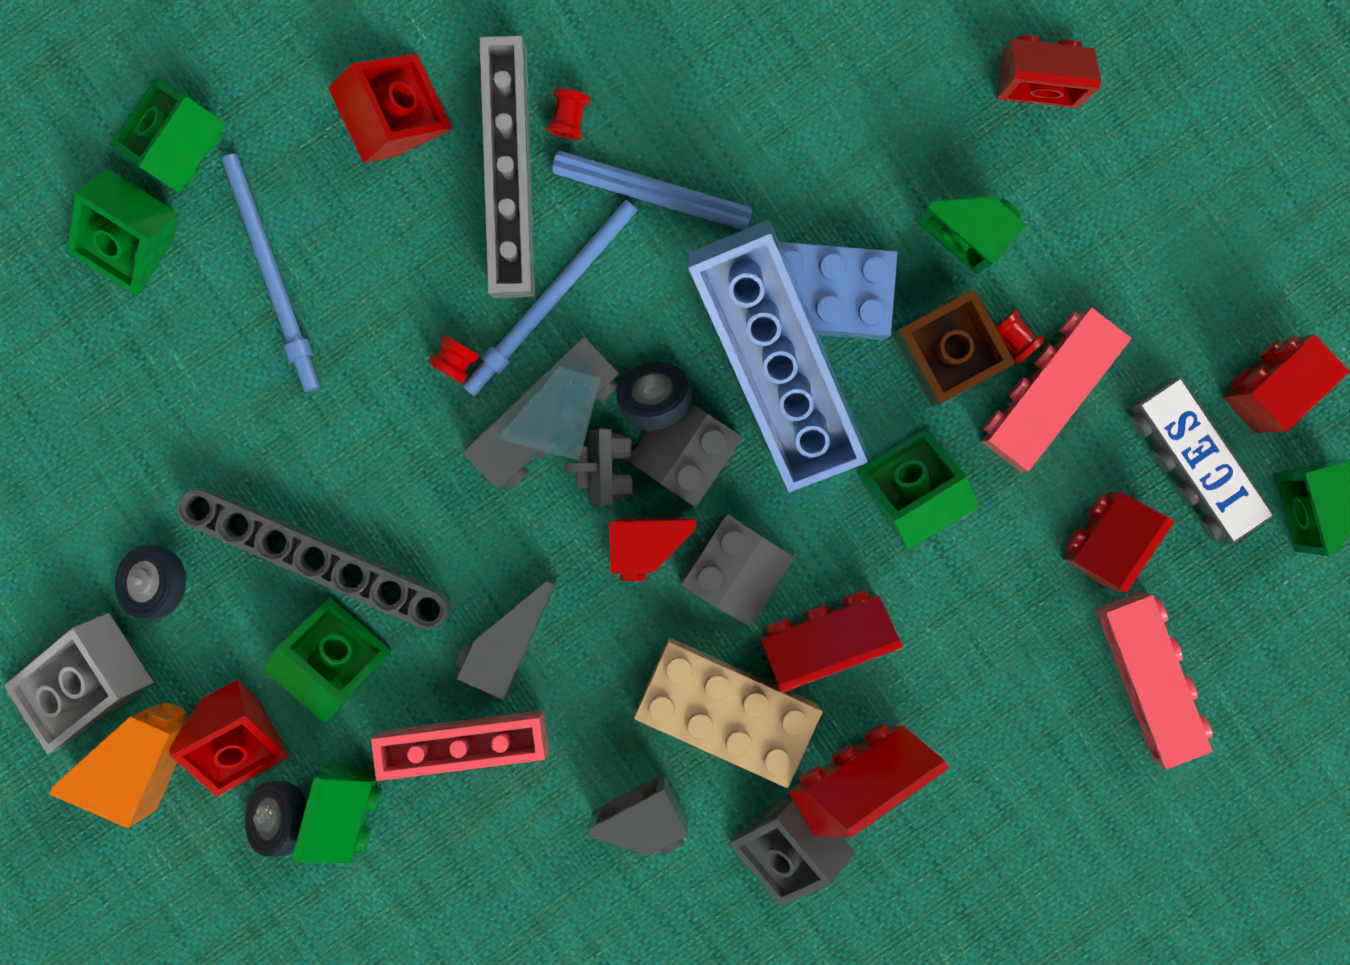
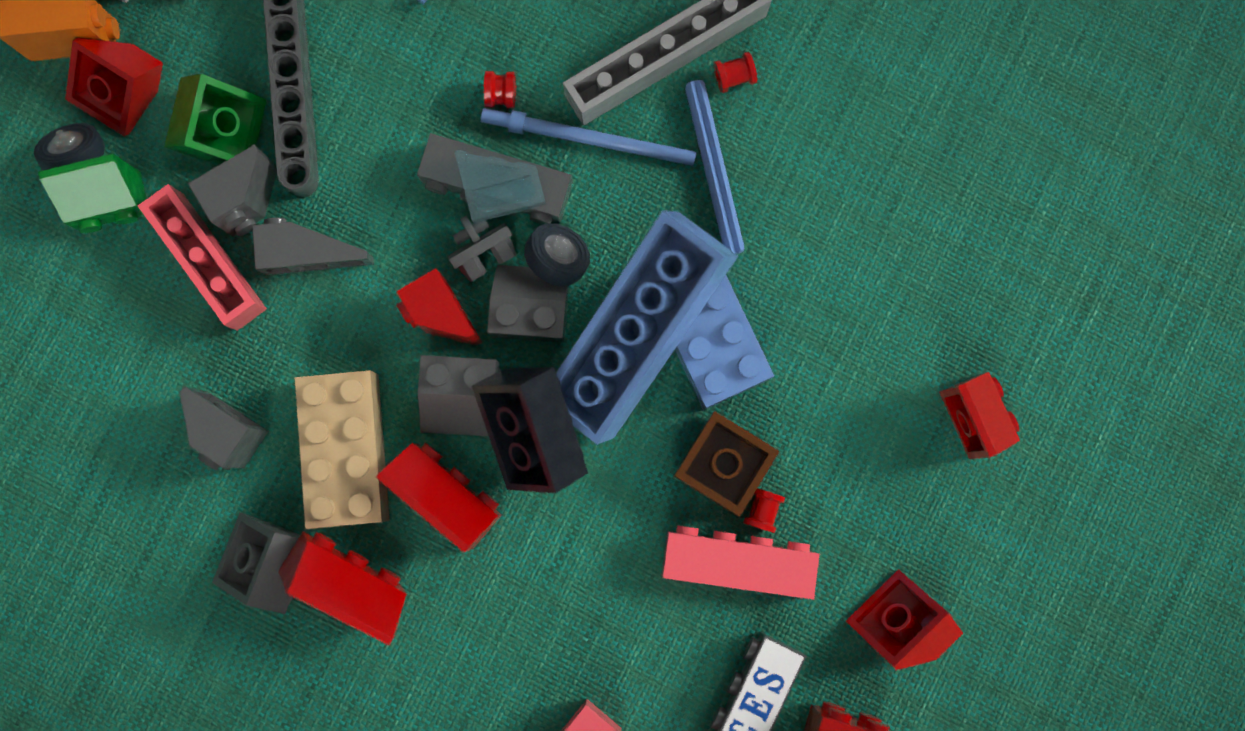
camera: 55 degrees right, 5 degrees down
(415, 676) = (237, 191): none -> dark grey slope
(817, 518) = (530, 429): none -> black brick
(918, 488) = (602, 502): green slope -> none
(973, 228) = (827, 424): green slope -> none
(1117, 540) = (648, 680): red slope -> none
(1201, 264) = (904, 623): none -> red slope

